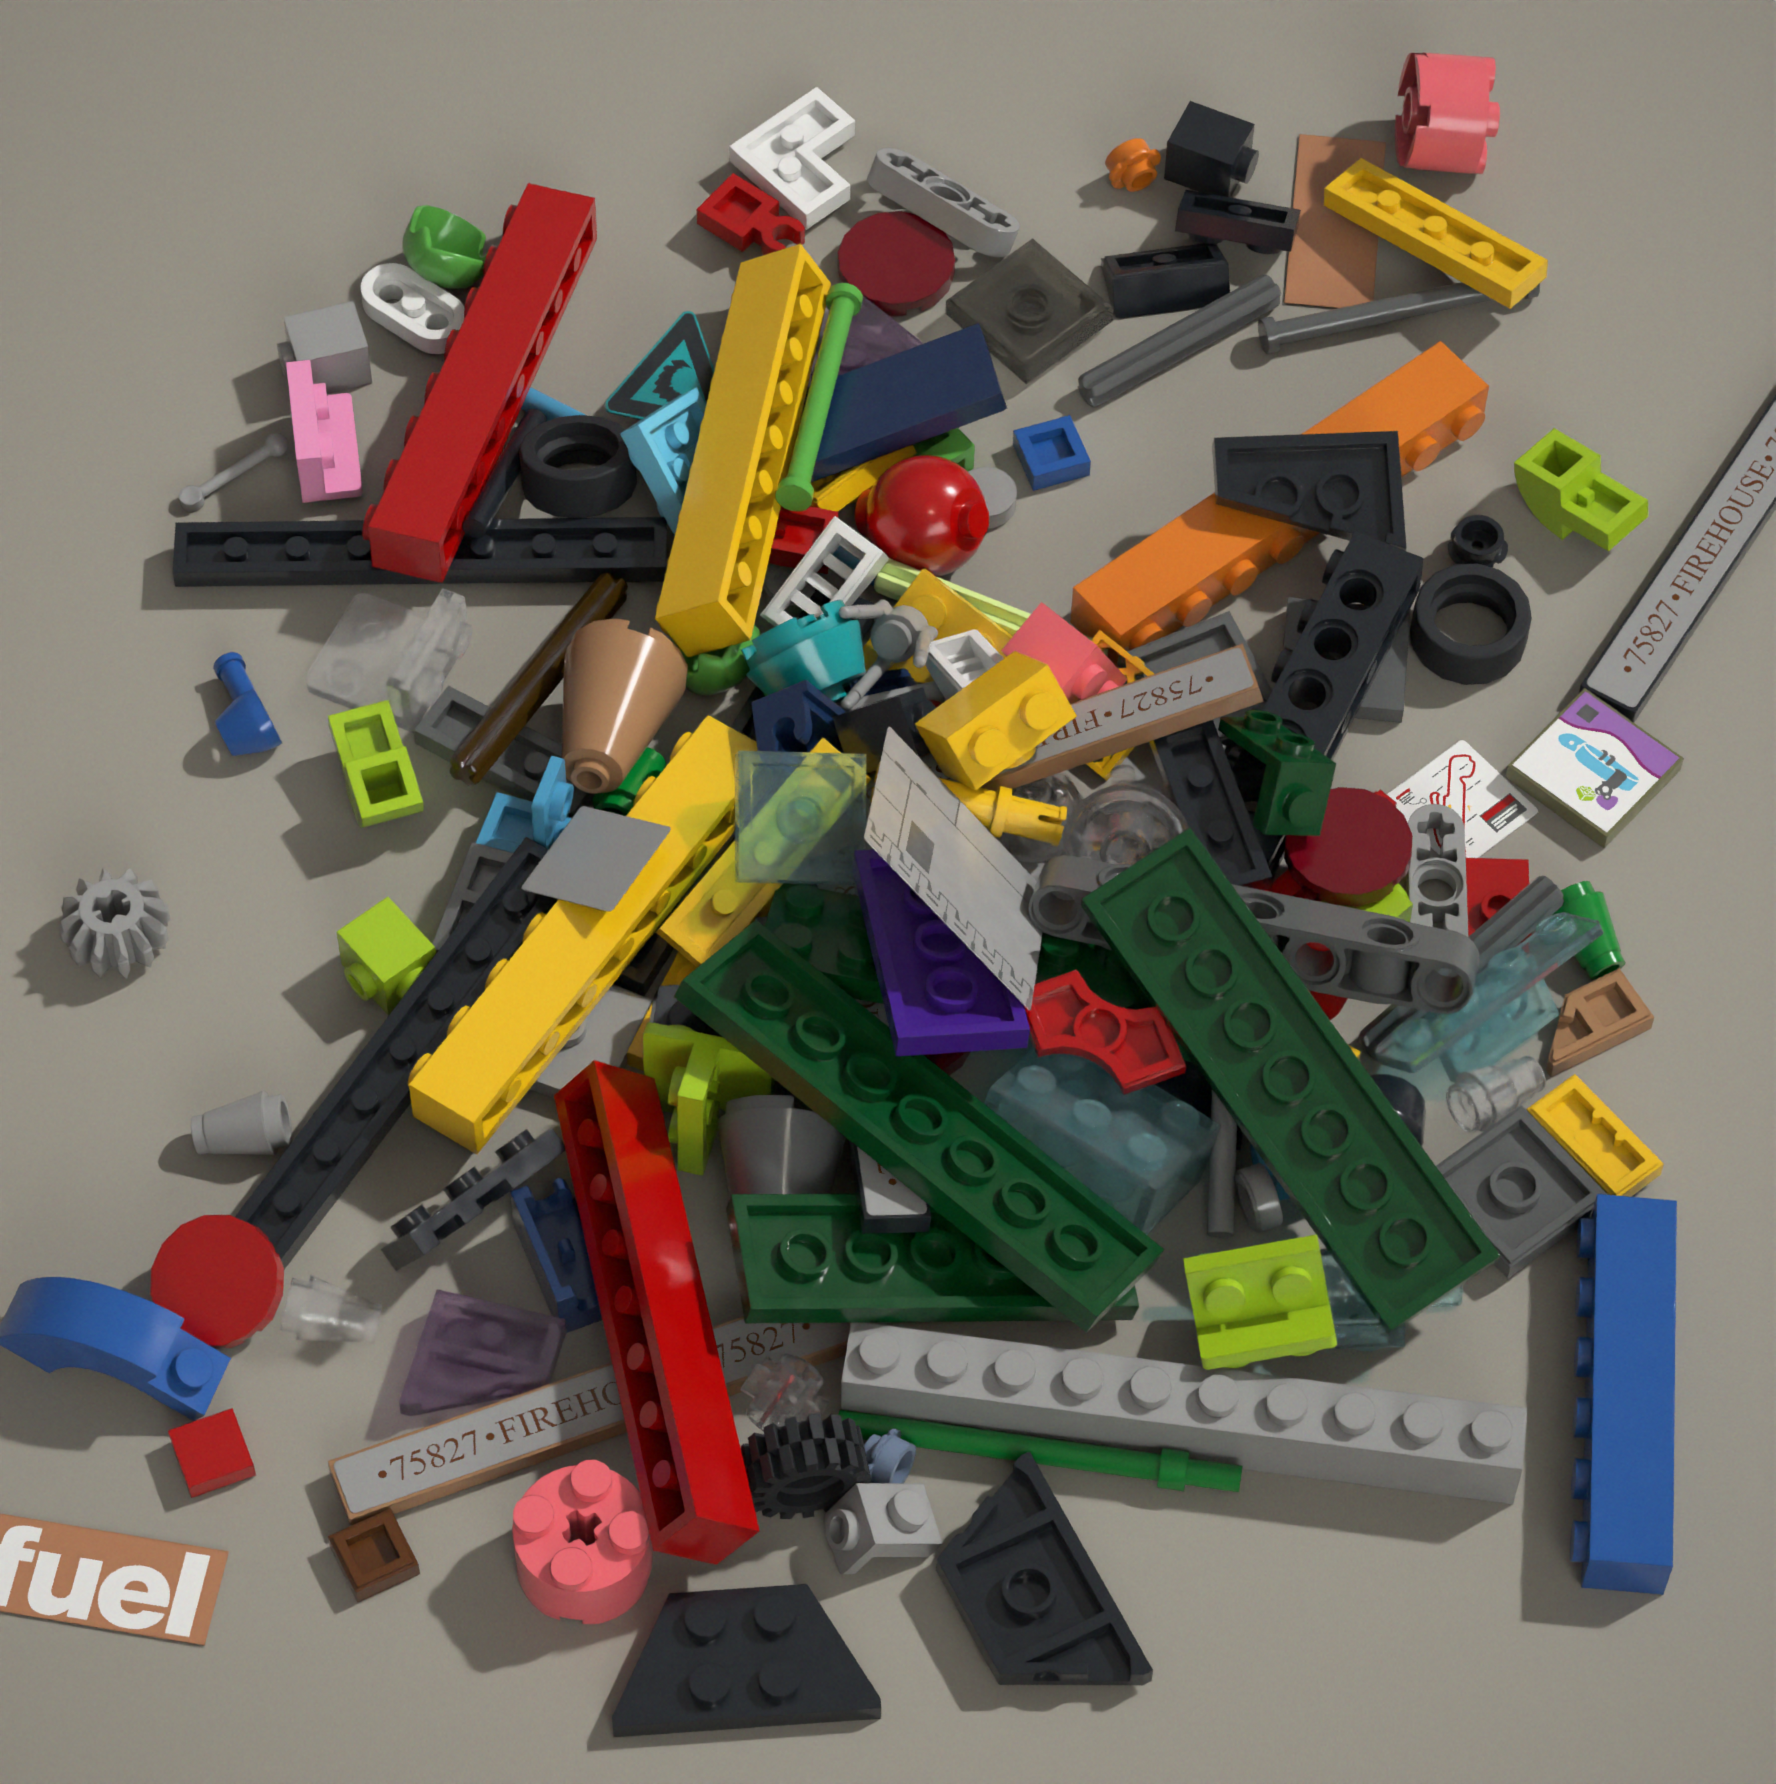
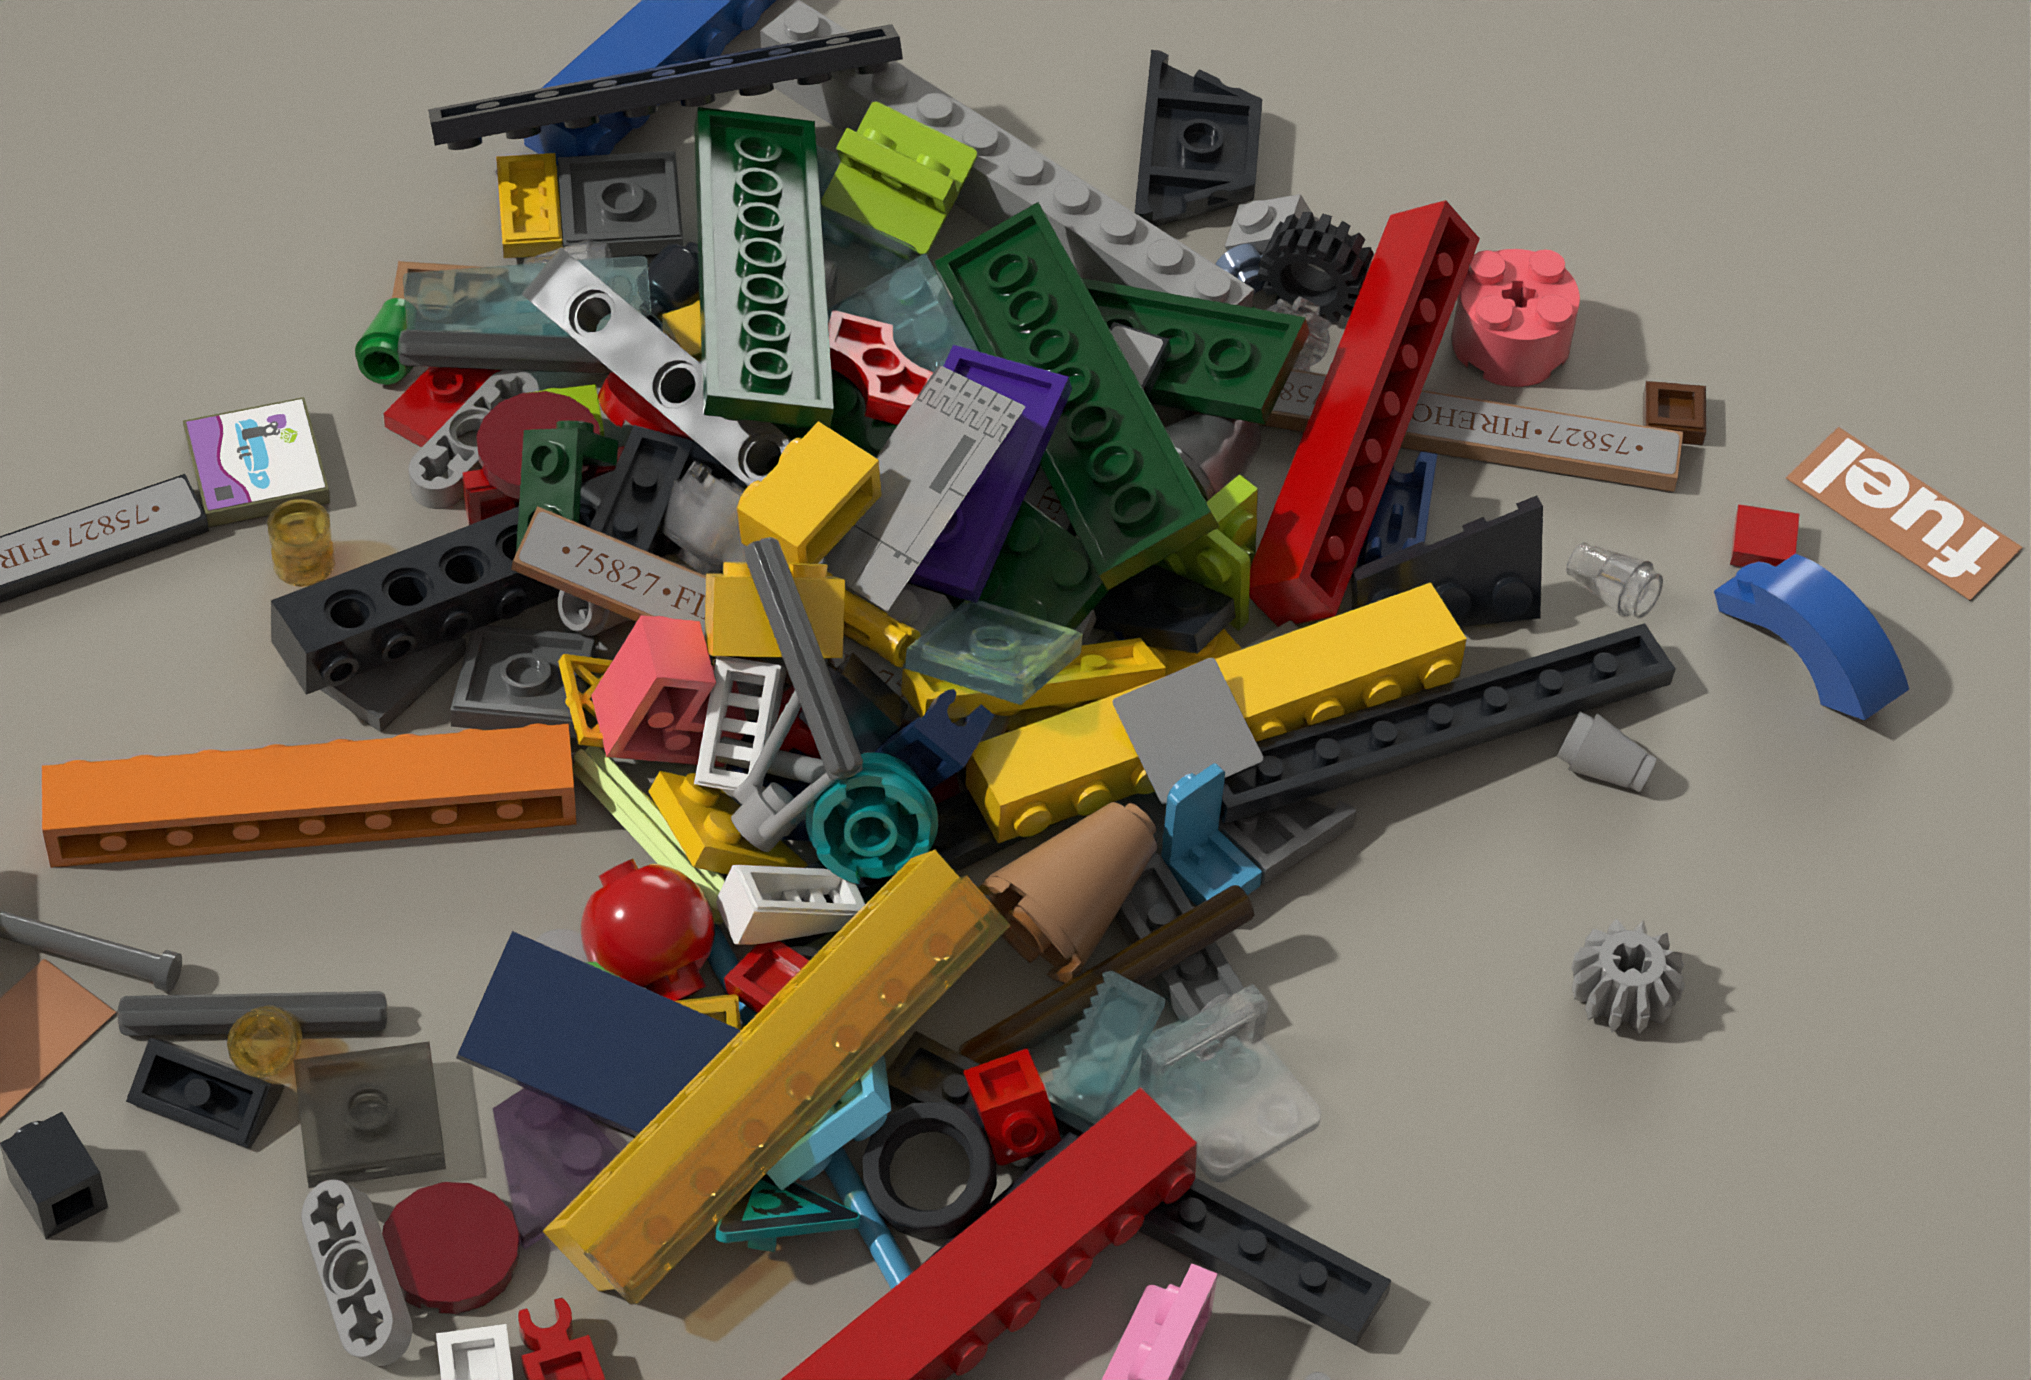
camera: 150 degrees left, 5 degrees down
(219, 1279) = (1697, 636): red tile -> none
(245, 721) = (1397, 1103): blue bar -> none
(375, 764) = (1311, 977): lime brick -> none
(383, 954) = (1400, 821): lime brick -> none
(479, 1354) = (1489, 482): clear purple wing -> none
(501, 603) = (1105, 1046): none -> clear light blue brick
(546, 522) = (1013, 1107): none -> red bracket
(700, 427) = (796, 1091): none -> clear yellow tile
(743, 1664) = (1400, 180): black wing -> none
(795, 490) = (655, 1088): bright green bar -> none
(926, 648) = (803, 659): none -> dark grey axle
(1040, 817) = (810, 496): none -> yellow brick
(1051, 452) = (460, 972): blue tile -> none
(1132, 165) = (136, 1213): orange plate -> none
(1142, 300) = (253, 1044): none -> clear yellow wheel
(1219, 218) = (94, 1087): black plate -> none
(1316, 481) = (284, 737): black wing -> none
(1473, 789) = (377, 509): white sticker -> none
(1481, 532) = (169, 667): black plate -> none
(1482, 587) = (229, 576): black tyre -> none
(1482, 699) = (301, 542): none -> clear yellow wheel
(1541, 1257) = (641, 91): none -> black plate
(1570, 493) = (50, 649): lime brick -> none

